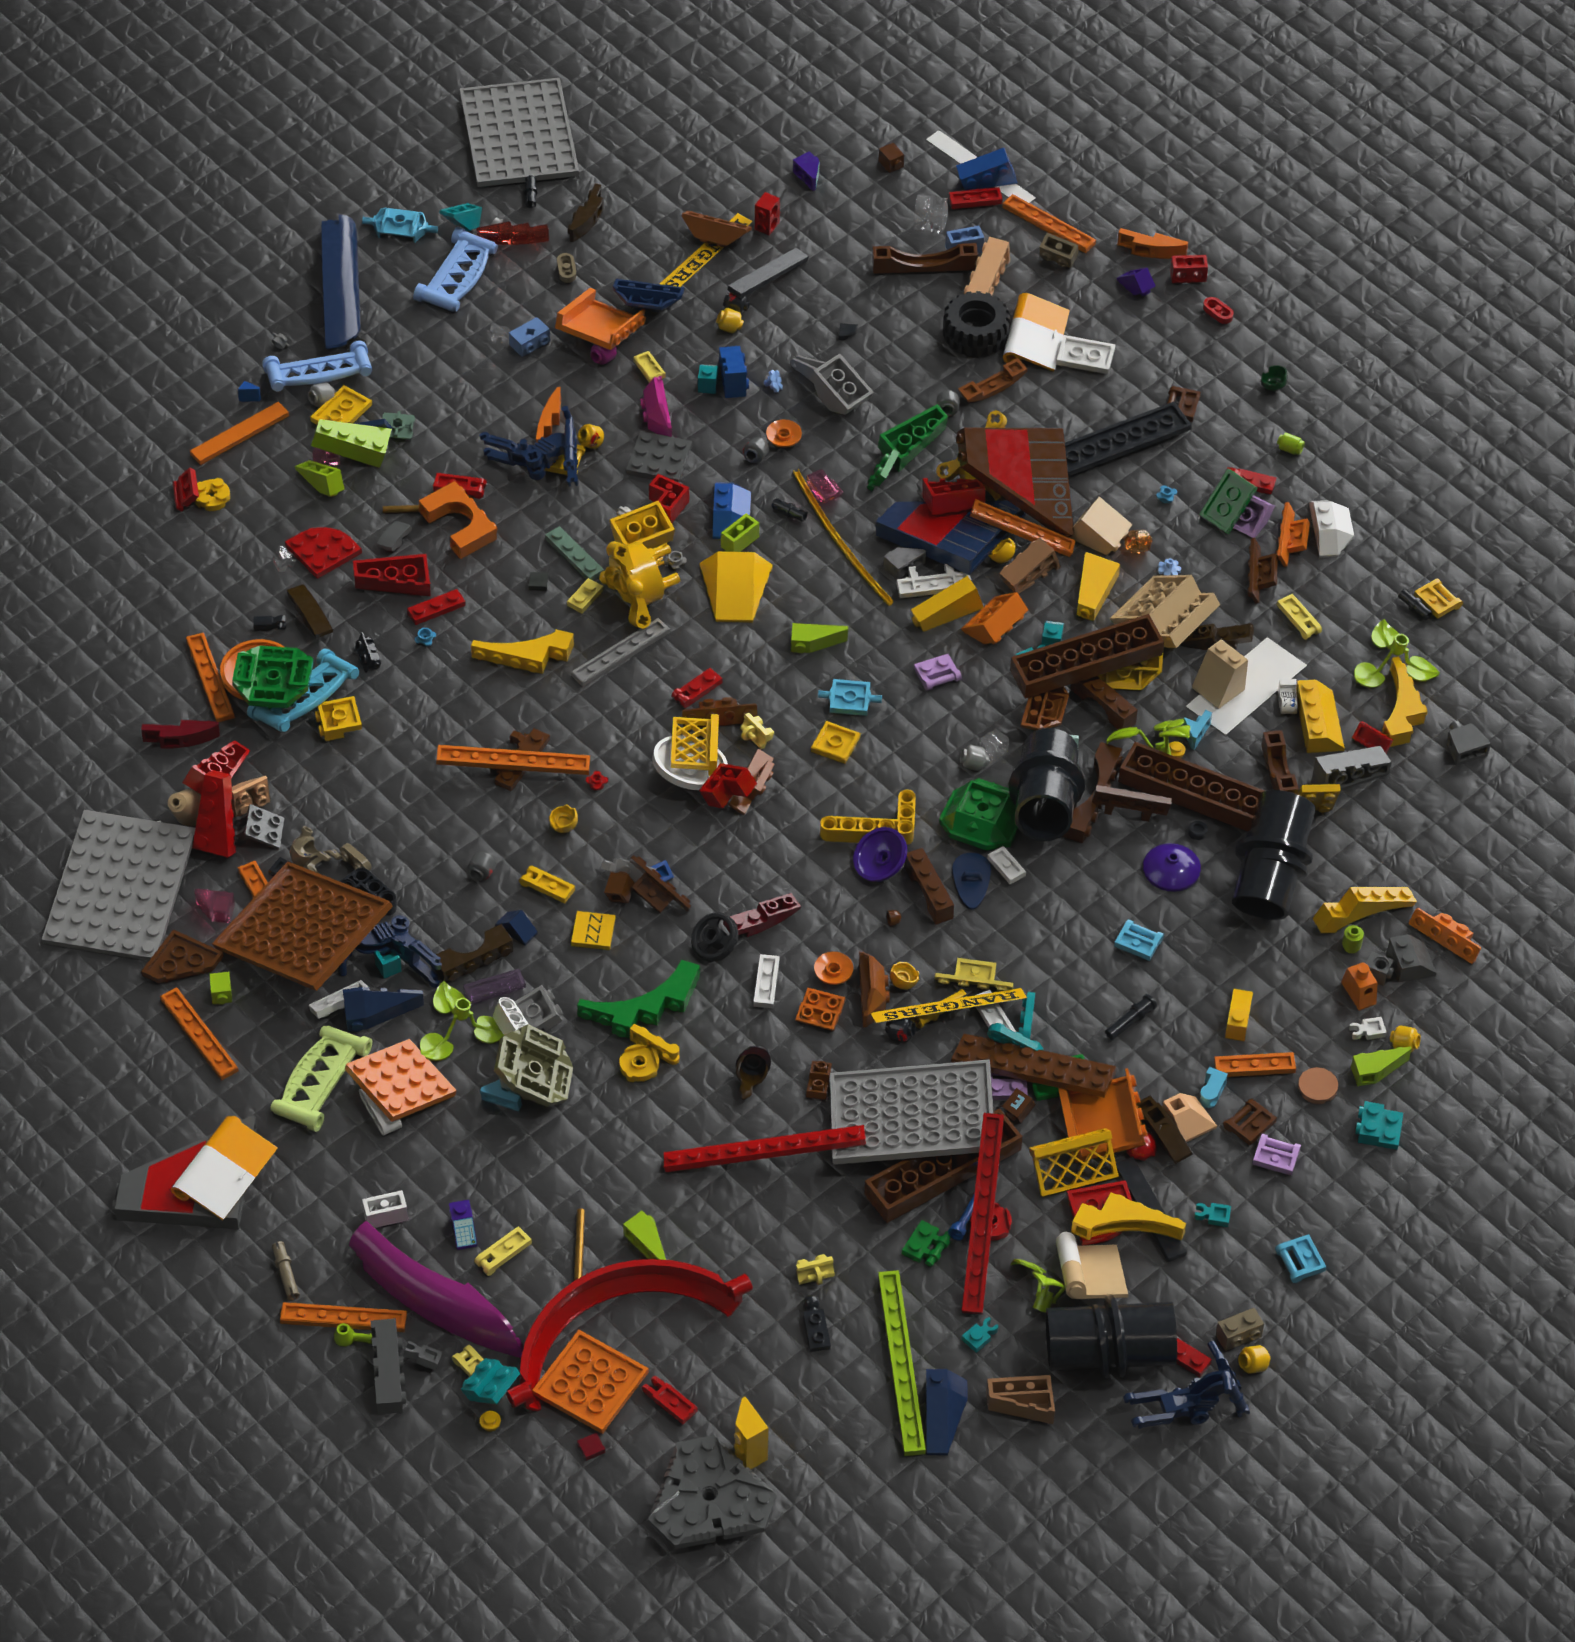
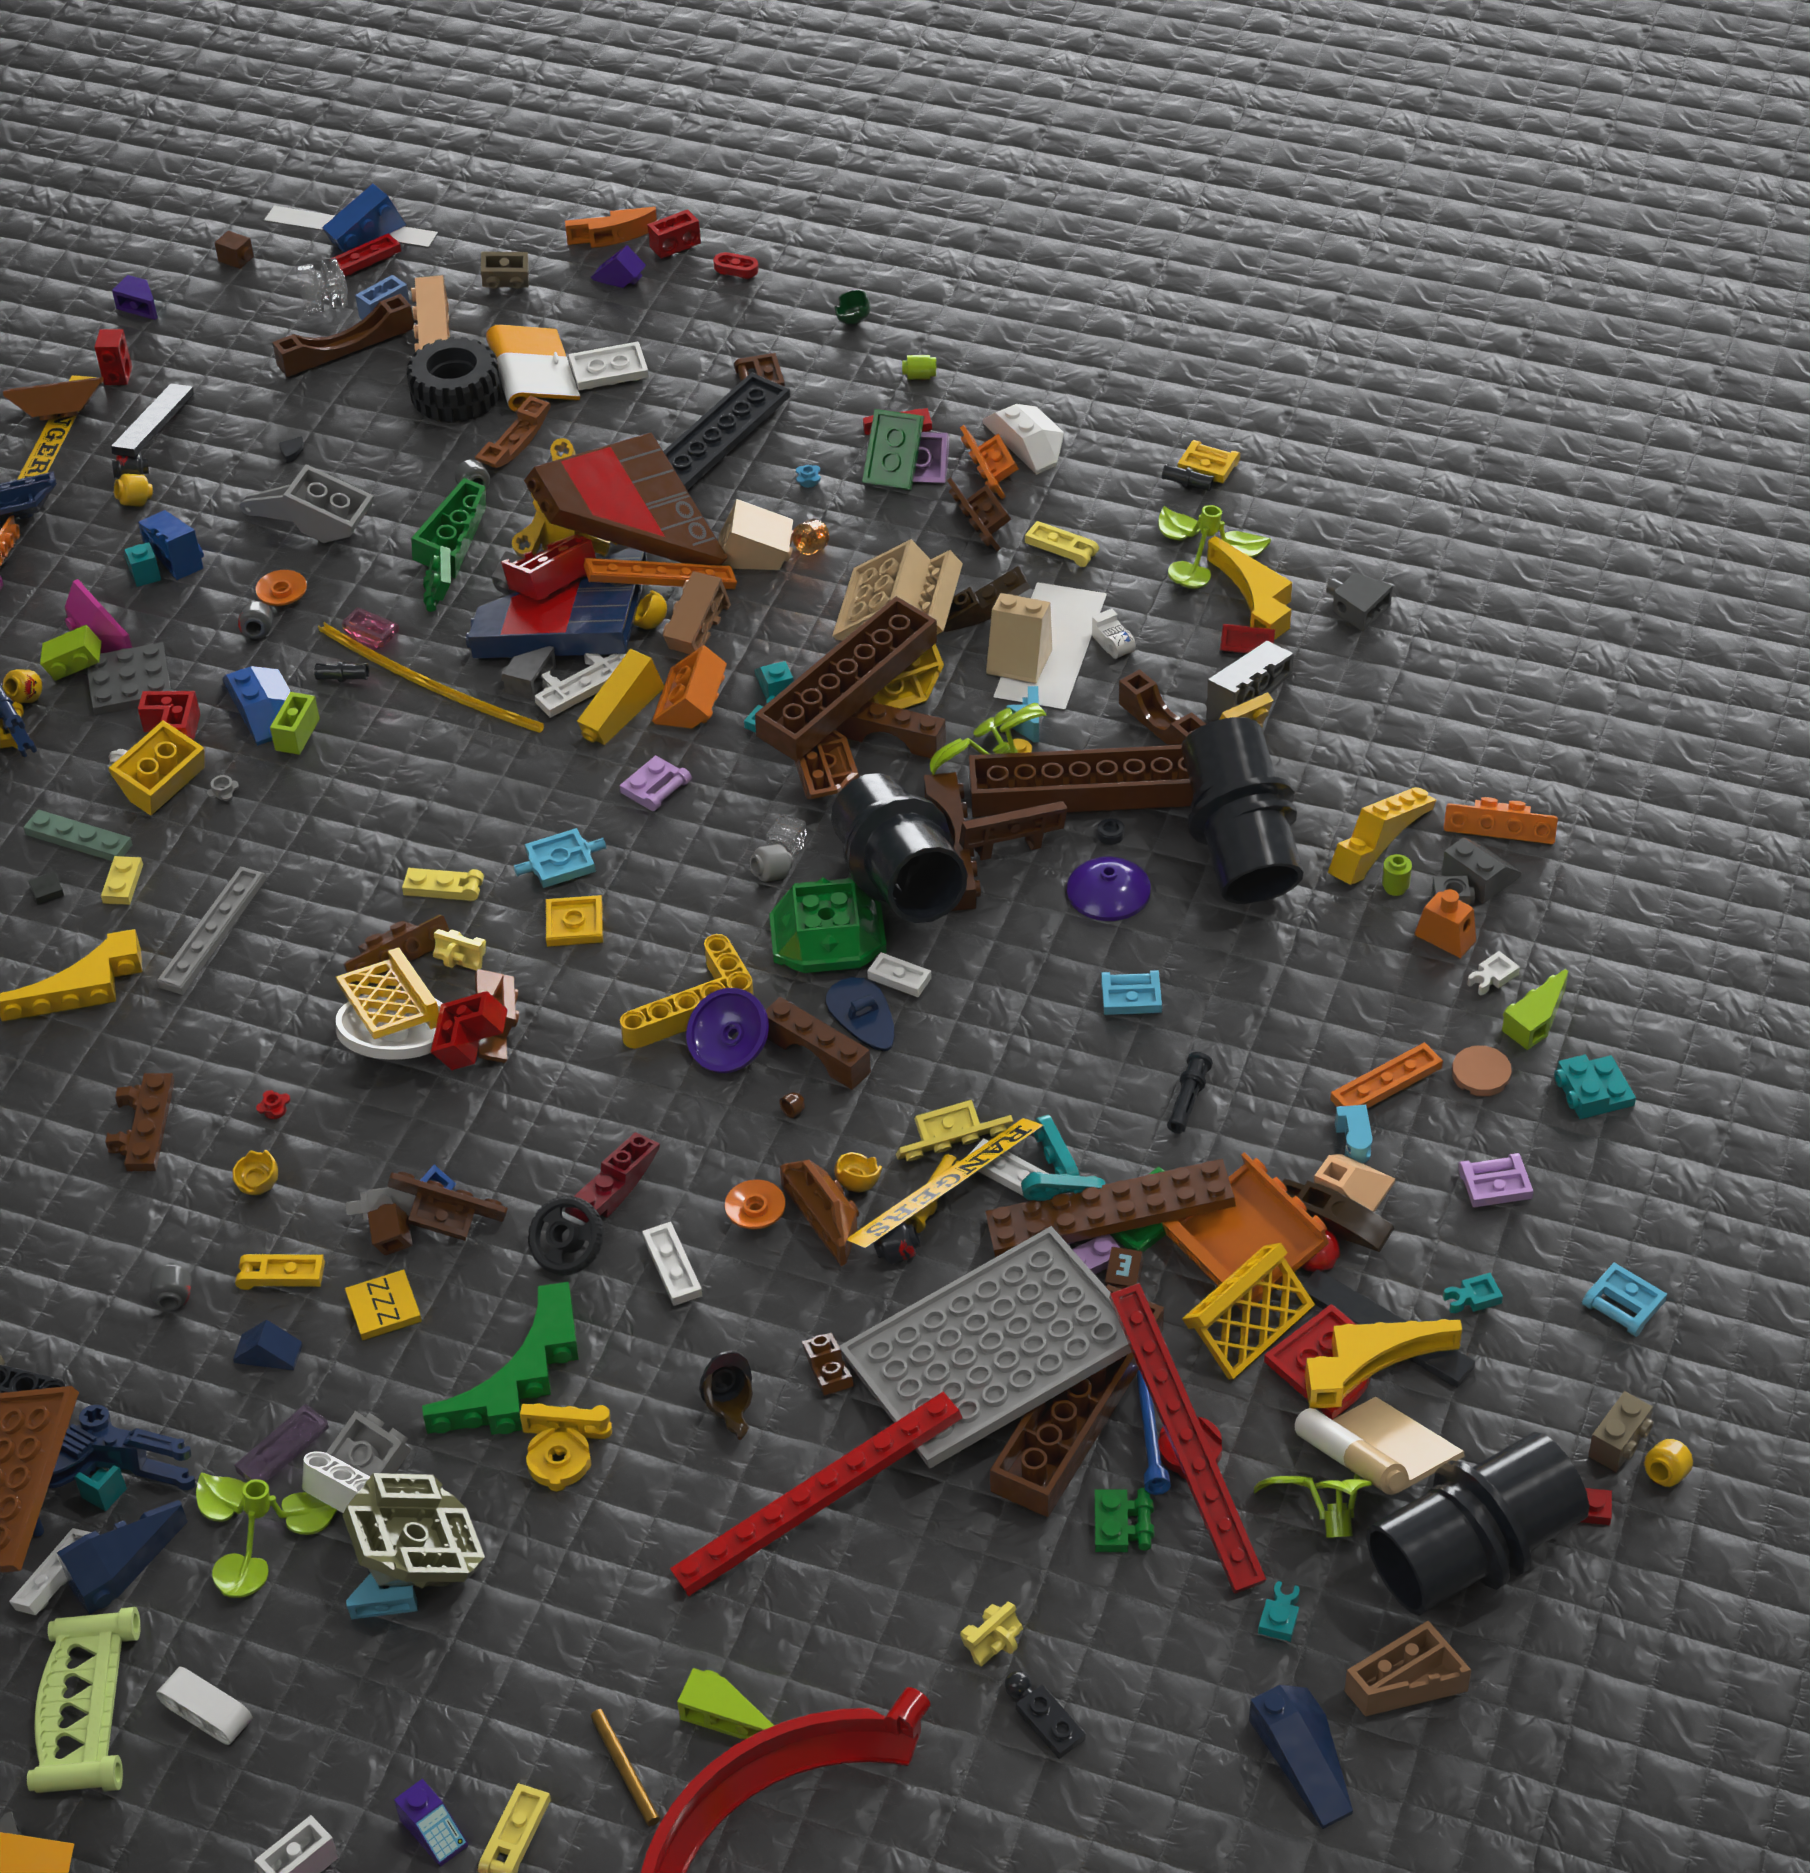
camera: 25 degrees left, 5 degrees down
(400, 1080) = (213, 1648): orange plate -> none
(456, 964) = (252, 1387): dark brown arch -> none
(513, 759) = (138, 1125): orange plate -> none
(631, 425) = (70, 652): none -> lime brick
(637, 578) = (187, 823): yellow piece -> none
(648, 366) = (53, 579): light yellow plate -> none
(697, 688) = (345, 930): red plate -> none
(735, 584) = (320, 785): yellow wedge -> none
(771, 683) = (443, 884): none -> light yellow plate
(774, 381) = (231, 536): light blue plant -> none
(814, 637) = (468, 805): lime slope -> none
(820, 1009) = (769, 1267): orange slope -> none
(901, 1363) = (1204, 1712): lime plate -> none
(1048, 222) = (463, 249): orange tile -> none
(1096, 583) = (788, 603): yellow slope -> none
(1169, 567) = (865, 551): light blue plant -> none
(1194, 1400) = (1641, 1552): dark blue piece -> none
(1239, 1014) = (1323, 1028): yellow slope -> none
(1252, 1127) = (1441, 1158): reddish brown plate -> none
(1318, 717) = (1165, 644): yellow slope -> none
(1405, 1037) = (1546, 962): yellow head -> none

